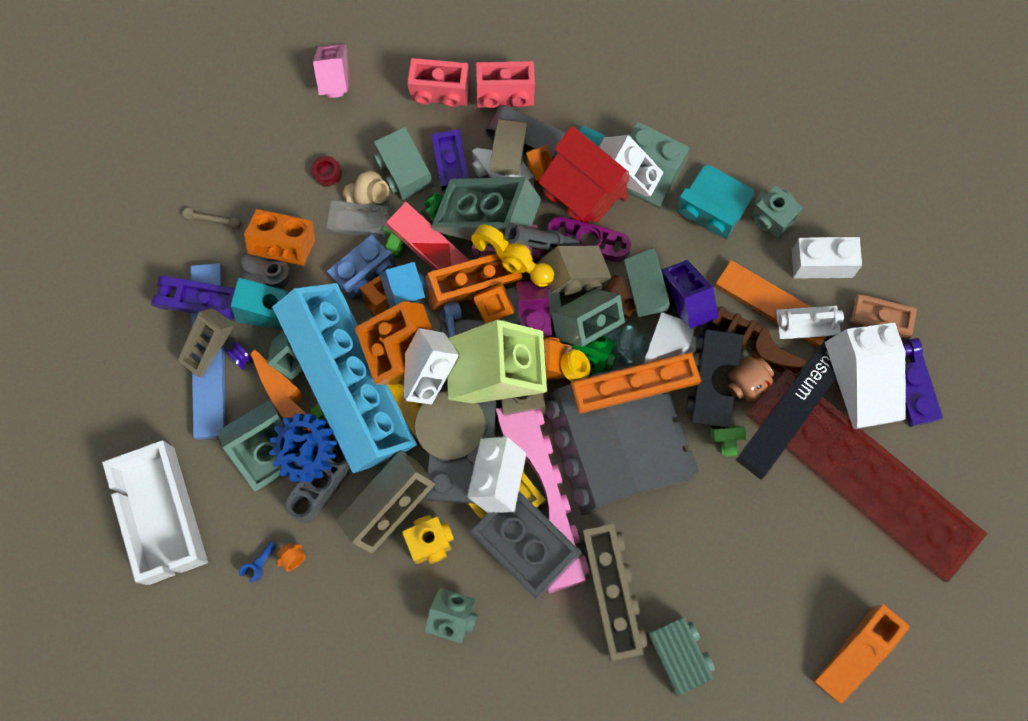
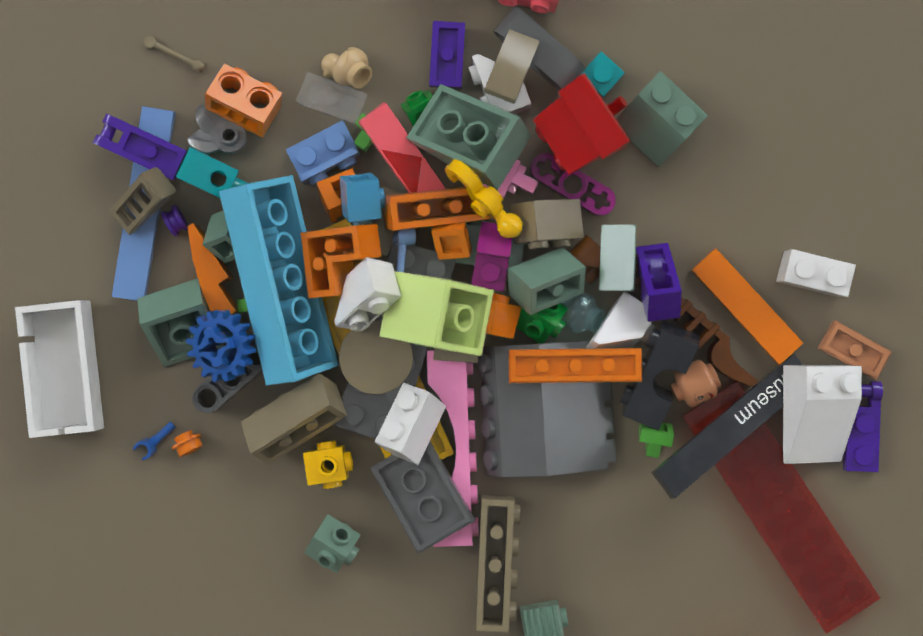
camera: 10 degrees right, 15 degrees up
(326, 171) = (309, 31): dark red tile -> none
(403, 163) = (393, 46): sand green brick -> none
(538, 238) = (527, 187): dark grey pin -> none
(539, 160) = (542, 90): orange plate -> none
(575, 365) = (518, 331): yellow tile -> none
(642, 170) = (637, 121): white slope -> none
(715, 201) = (719, 178): teal bracket -> none
(776, 211) = (790, 208): sand green brick -> none
(809, 322) = (774, 339): white hinge -> none

